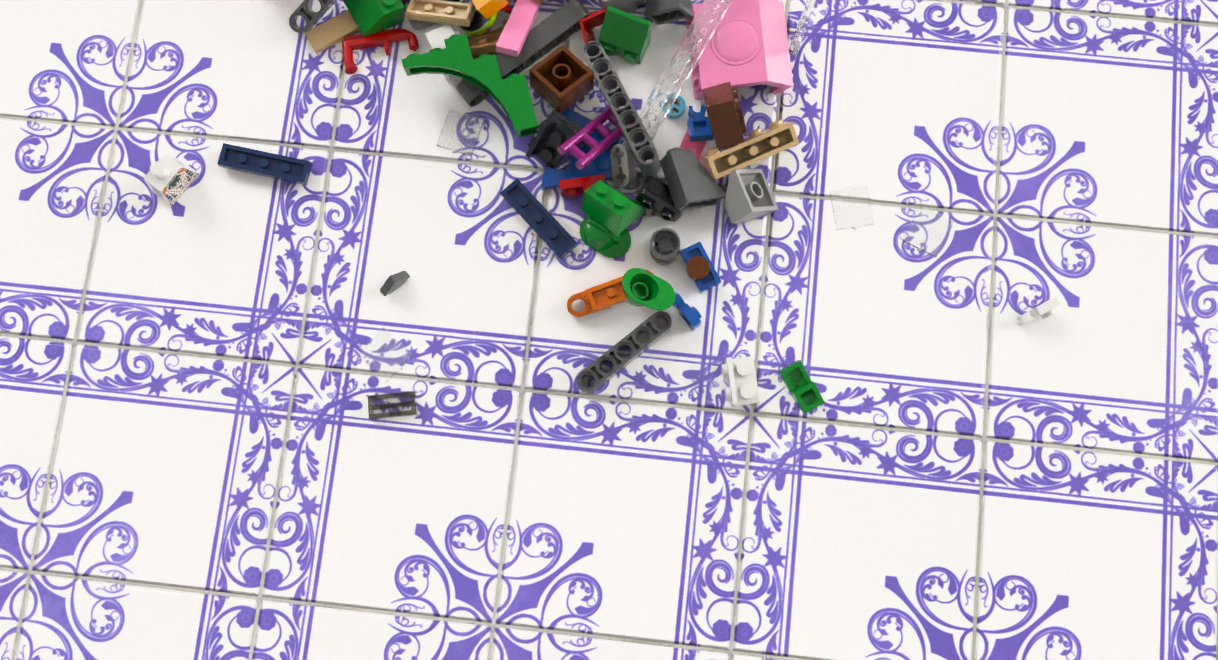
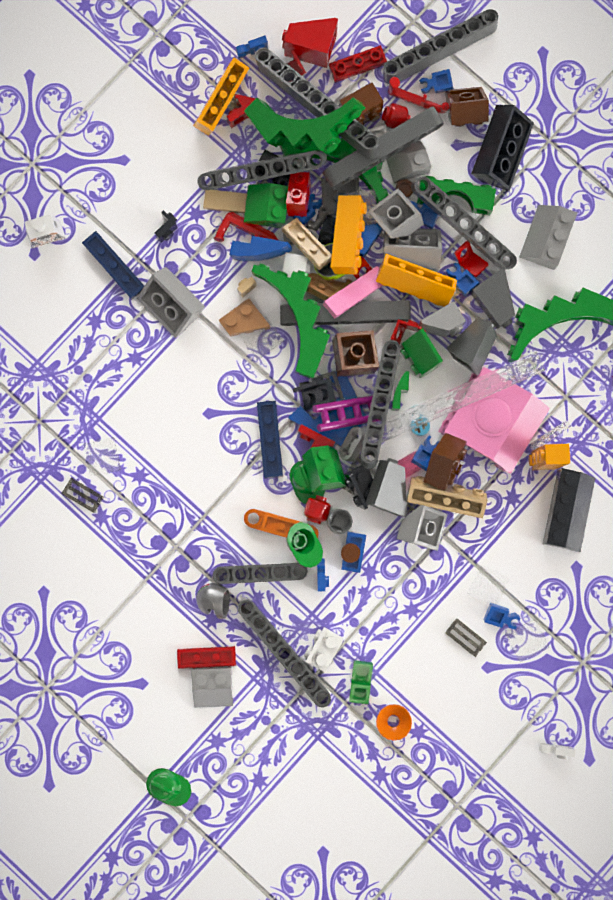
camera: 30 degrees right, 5 degrees up
(294, 92) = (166, 231): none -> black bracket
(345, 159) = (170, 301): none -> light grey slope
(394, 282) = (142, 412): dark grey tile -> none
(397, 47) = (258, 249): none -> blue slope
(410, 93) = (246, 285): none -> tan plate
(430, 126) = (244, 319): none -> medium nougat wing
(597, 406) = (215, 598): none -> flat silver helmet
(630, 81) = (403, 386): none -> green slope
(632, 474) = (206, 657): none -> red tile
(634, 251) = (317, 509): none -> red head
(660, 498) = (212, 687): none -> light grey slope
(690, 632) = (168, 787): none -> green piece
(717, 409) = (291, 659): none -> dark grey beam
(820, 37) = (549, 457): none -> light orange brick
(866, 261) = (478, 647): none -> clear smoke tile
(871, 83) = (569, 510): none -> black slope
(875, 399) = (399, 731): none -> orange piece
(884, 226) = (498, 615): none -> blue plate

